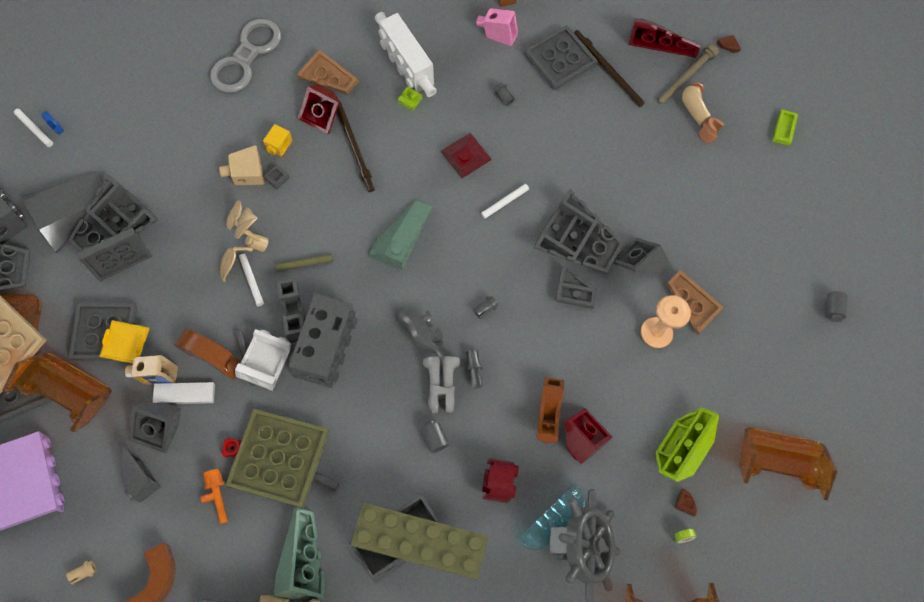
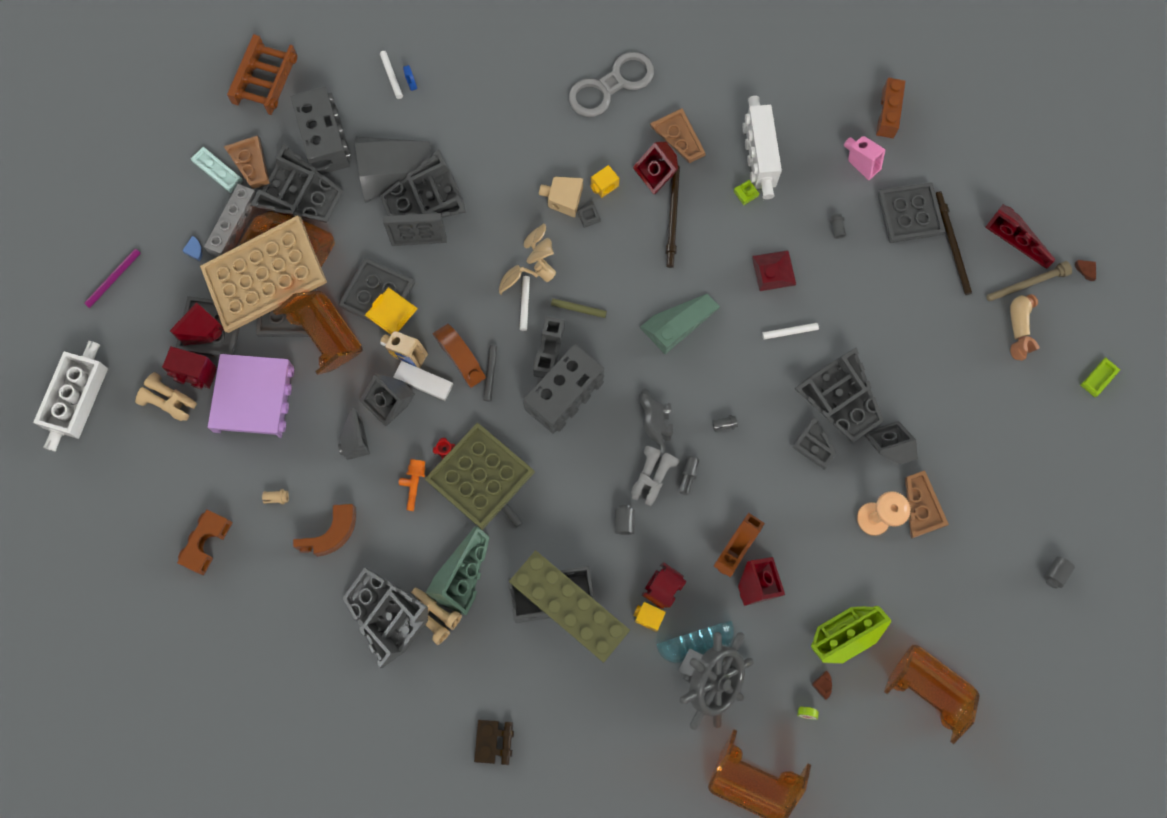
camera: 25 degrees right, 5 degrees up
(264, 359) = (505, 382): white panel -> none
(498, 515) = (649, 616): none -> yellow brick

